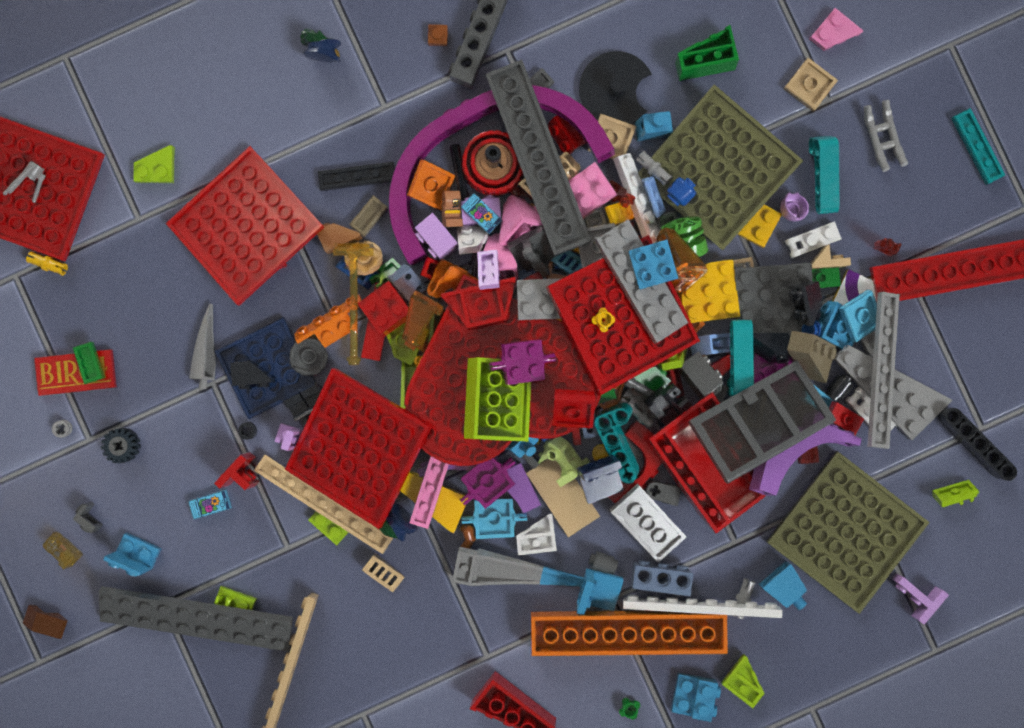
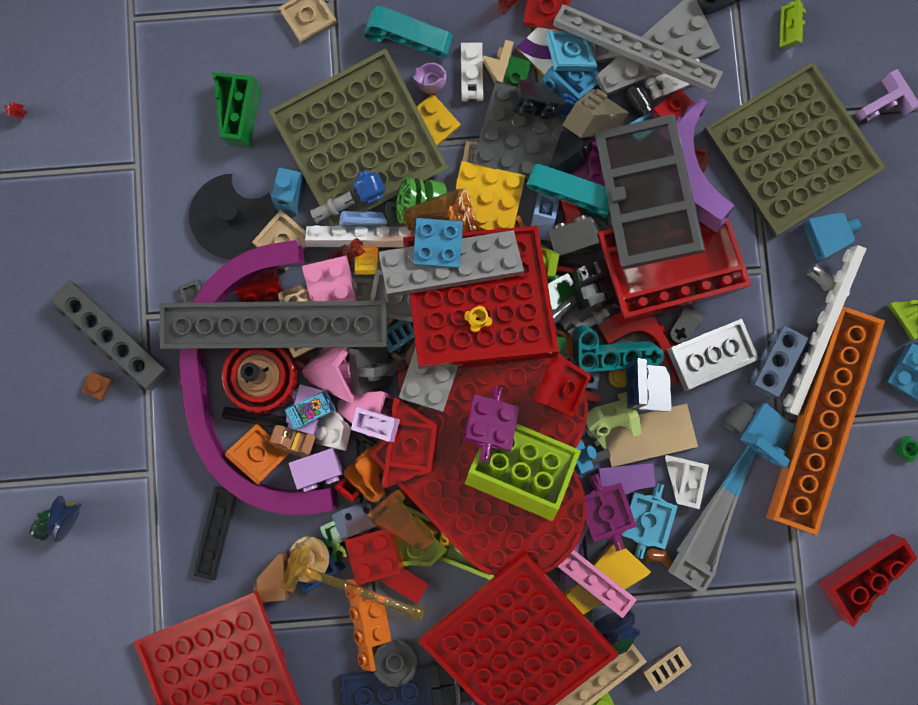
camera: 75 degrees left, 5 degrees down
(369, 216) = (264, 536): dark tan tile -> none

